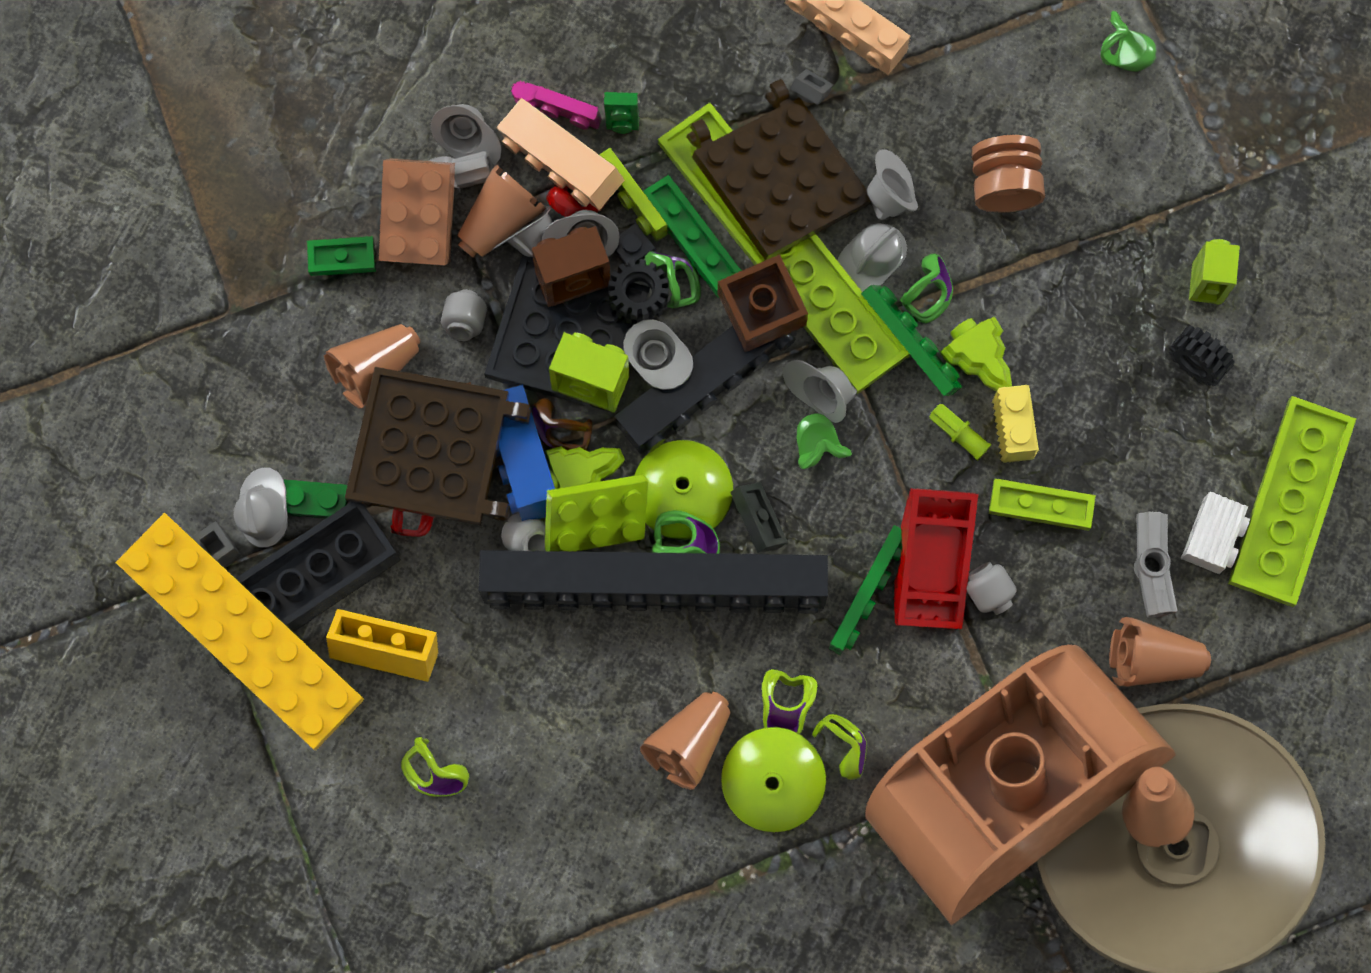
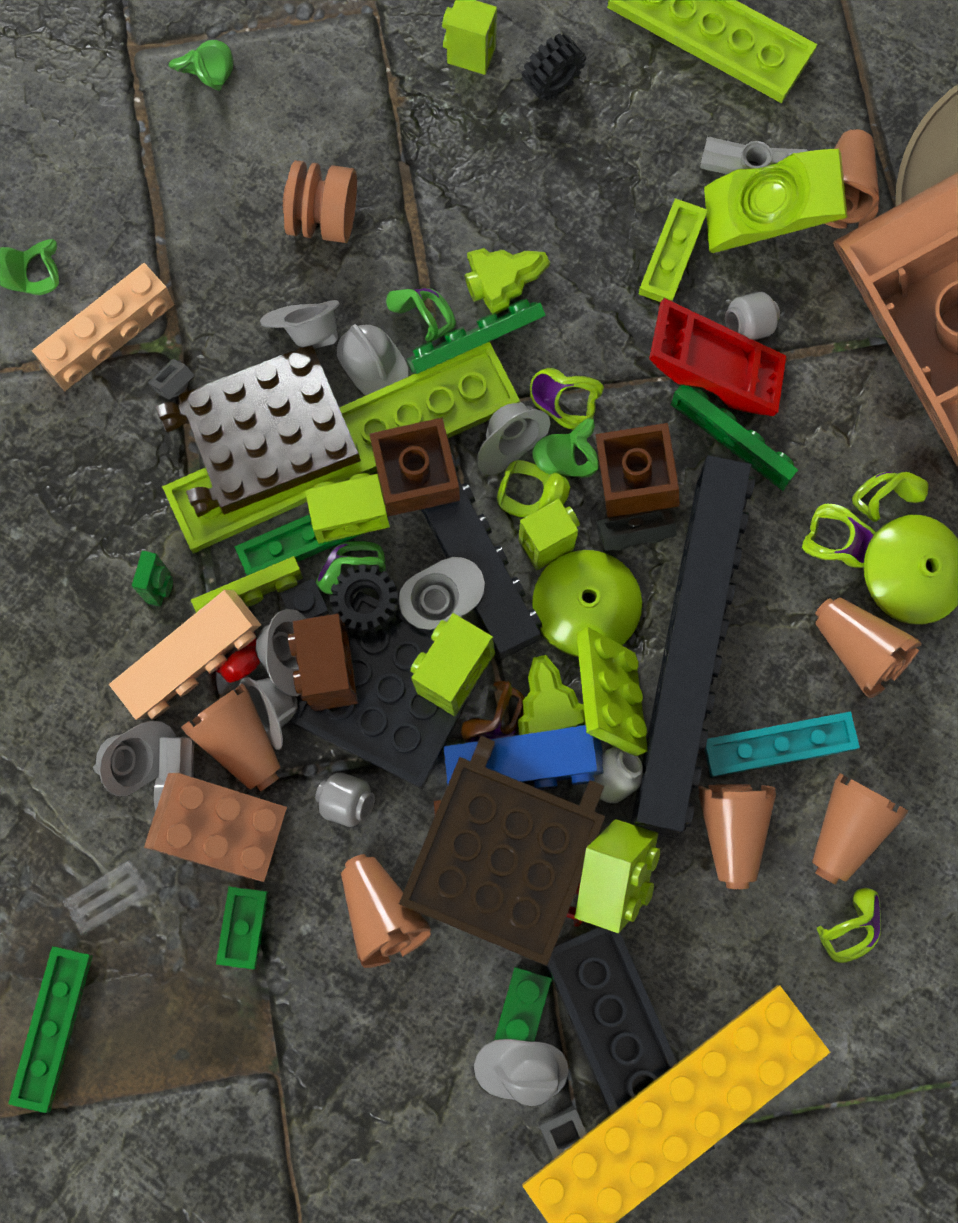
camera: 80 degrees left, 0 degrees up
(234, 125) = (50, 1030): none -> green plate
(331, 124) = (78, 913): none -> clear tile
(382, 645) = (711, 956): yellow brick -> none
(433, 546) = (617, 876): none -> lime brick
(499, 649) = (737, 829): none -> nougat cone
(520, 753) = (852, 829): none -> nougat cone
(556, 104) = (121, 654): dark pink hinge -> none
(584, 680) = (781, 744): none -> teal plate
(703, 535) = (654, 588): bright green piece -> none
(716, 253) = (347, 507): none -> lime brick
(731, 436) = (548, 533): none -> lime brick
(775, 435) = (554, 485): none -> lime piece
(811, 505) = (638, 470): none -> reddish brown brick
(874, 413) = (547, 388): none -> lime piece
(959, 431) = (581, 313): lime axle -> none
(1015, 423) = (586, 256): light yellow brick -> none
(1110, 585) = (775, 199): none -> lime slope
(1215, 533) = (732, 100): white brick -> none

